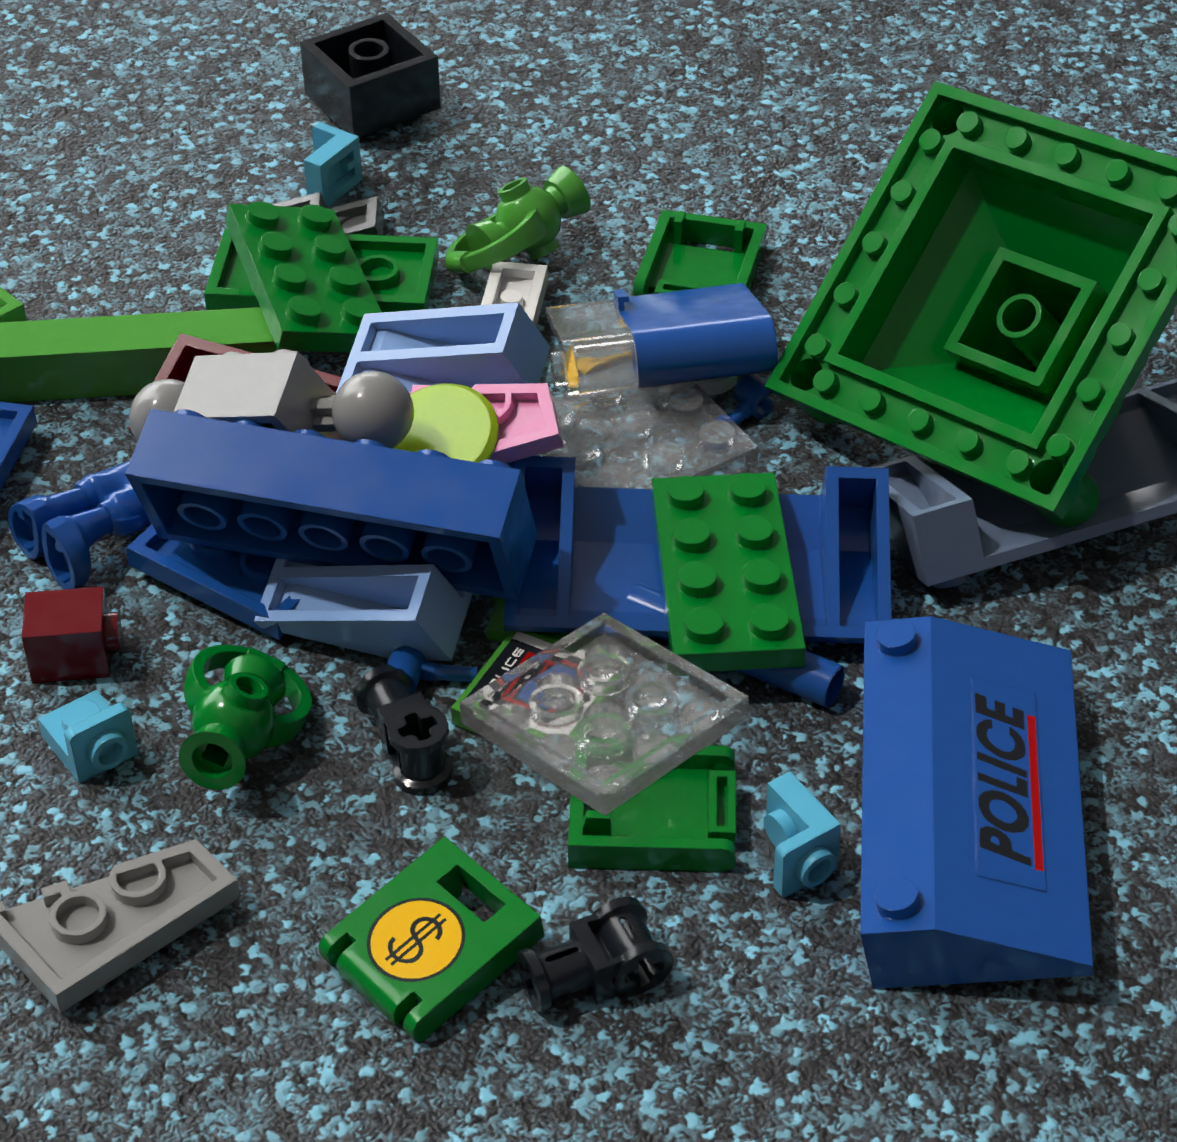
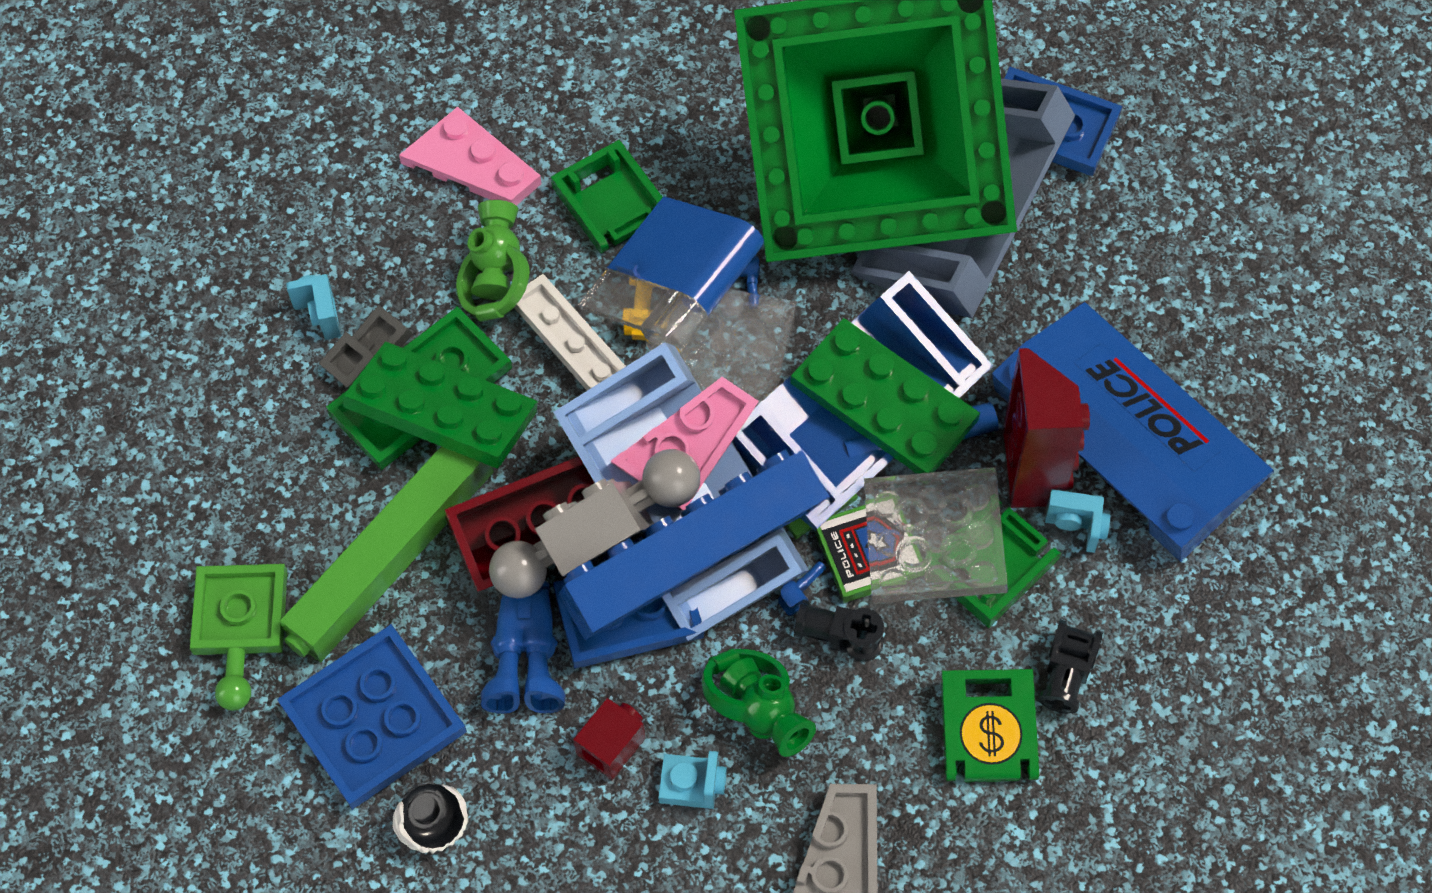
camera: 45 degrees left, 20 degrees up
(370, 75) = (260, 217): black brick -> none
(452, 422) = (704, 441): lime piece -> none
(615, 162) = (473, 157): none -> bright pink wing
(811, 671) = (1042, 431): none -> dark red slope

